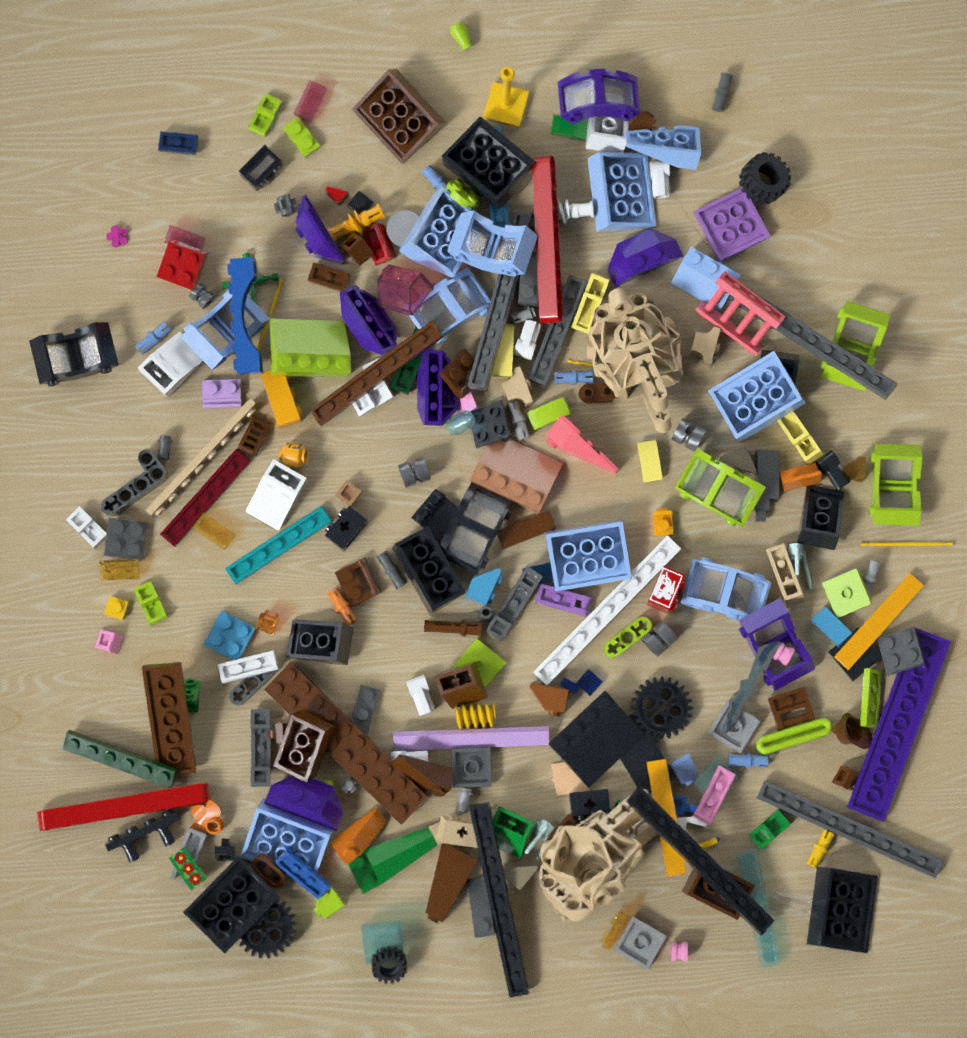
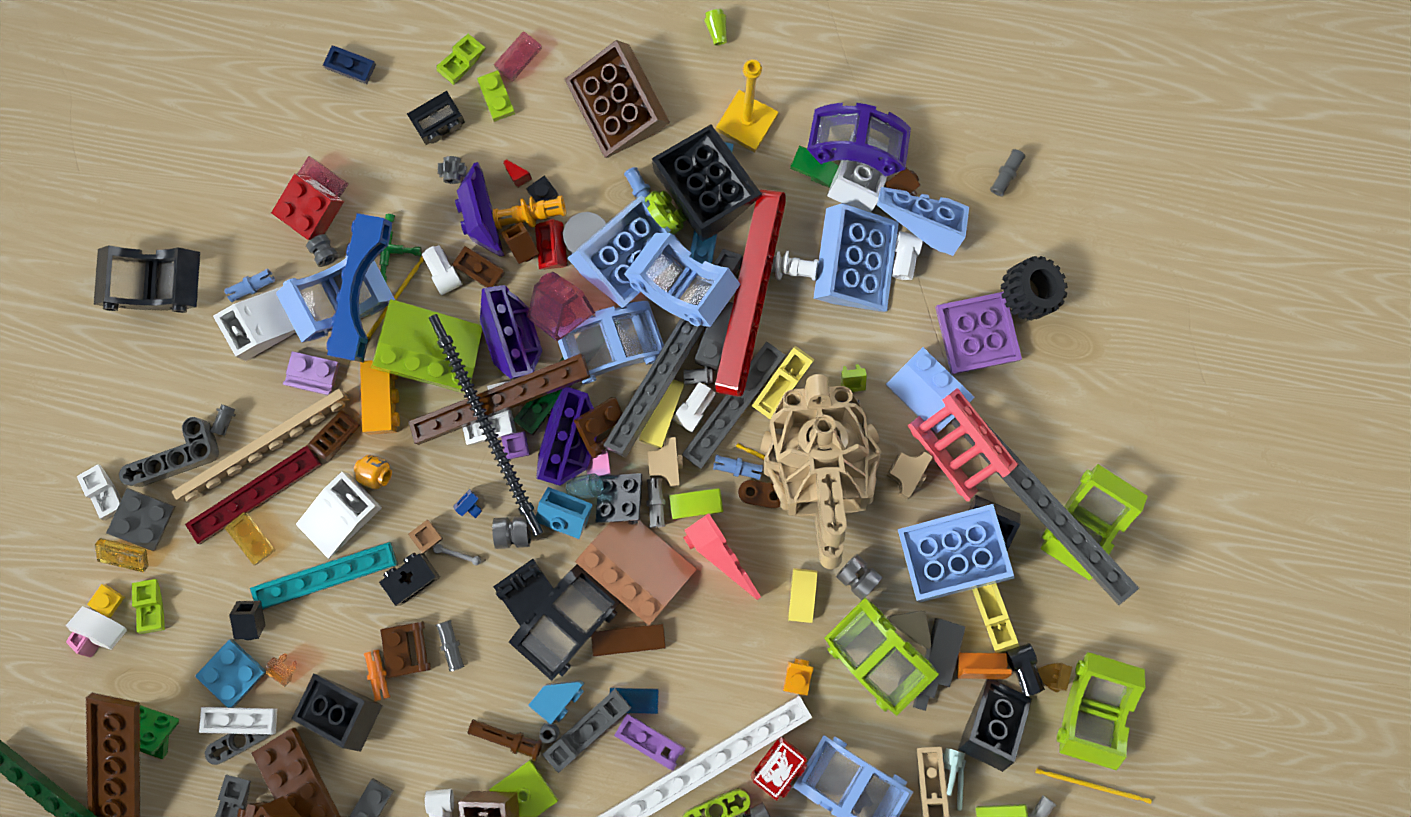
camera: 15 degrees right, 0 degrees up
(116, 236) = (246, 154): dark pink plant -> none
(121, 628) = (96, 627): none -> white slope
(232, 591) = (247, 620): none -> black brick
(303, 290) = (443, 274): none -> white piece
(325, 339) = (445, 341): none -> black hose
(373, 460) = (467, 503): none -> blue tile
(391, 502) = (438, 548): none -> light grey hinge
(396, 406) = (515, 445): none -> medium lavender tile
(428, 570) = (493, 660): black slope -> none
(449, 446) = (563, 512): none -> dark azure brick
(588, 555) = (695, 694): light blue slope -> none
(642, 255) = (860, 341): dark purple wedge -> none
(645, 285) = (854, 379): none -> lime tile

